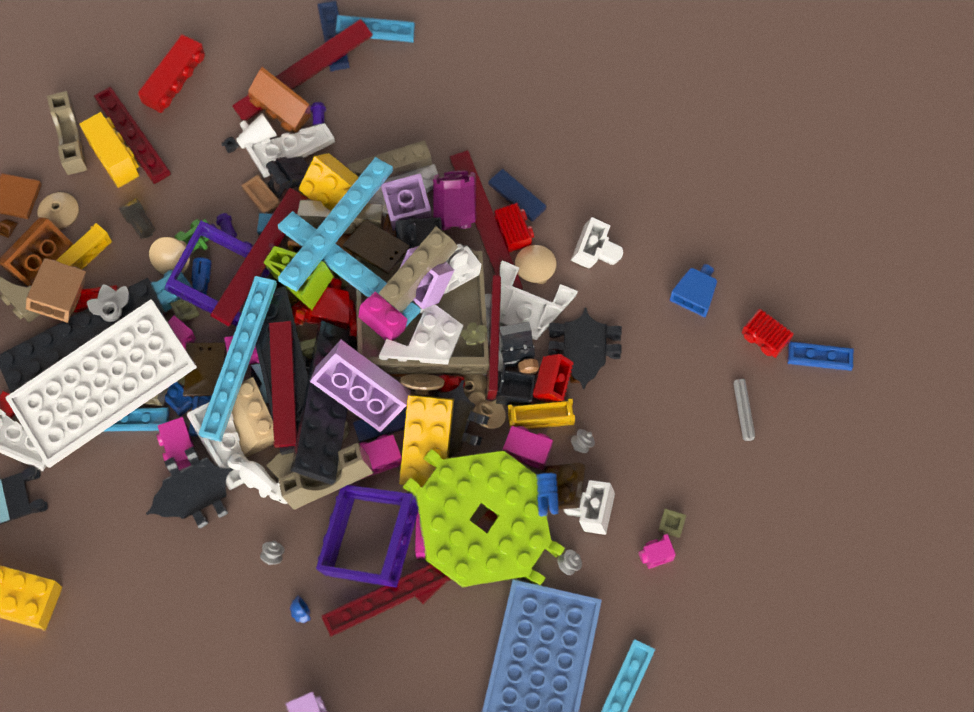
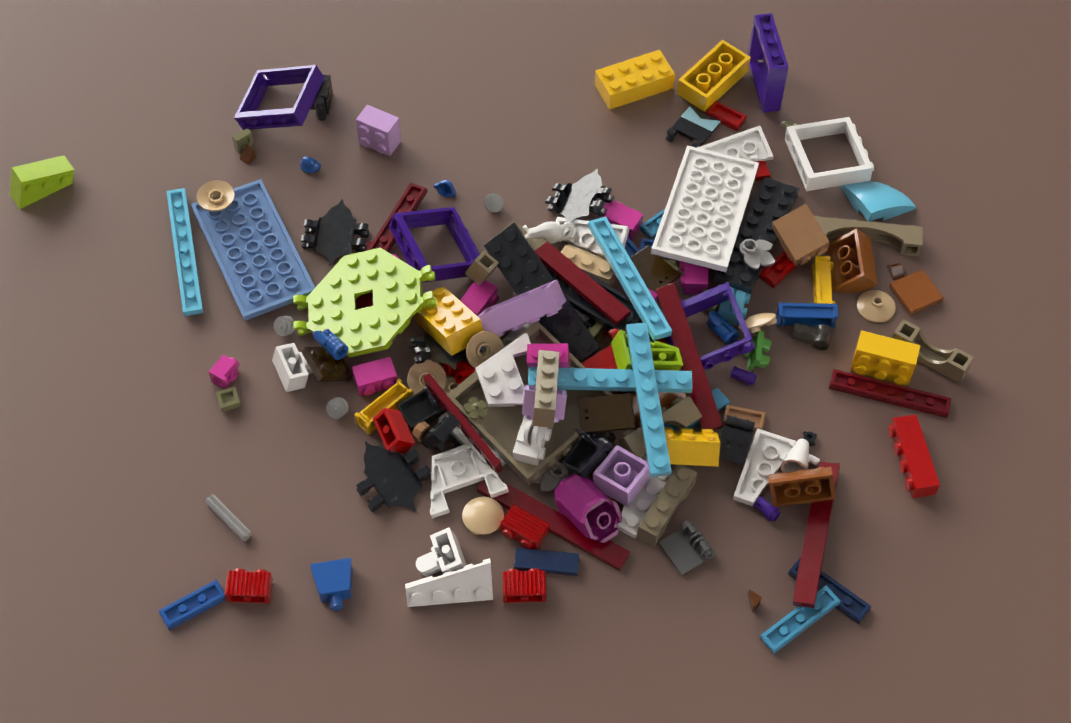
camera: 140 degrees right, 10 degrees down
(123, 236) = (807, 313): none -> blue container
(393, 62) = (754, 600): none -> reddish brown piece
(403, 129) = (687, 548): none -> dark grey hinge
(444, 637) = (335, 233): none -> black animal
(551, 184) = (524, 586): none -> red brick
(590, 208) = (463, 585): none -> white wing

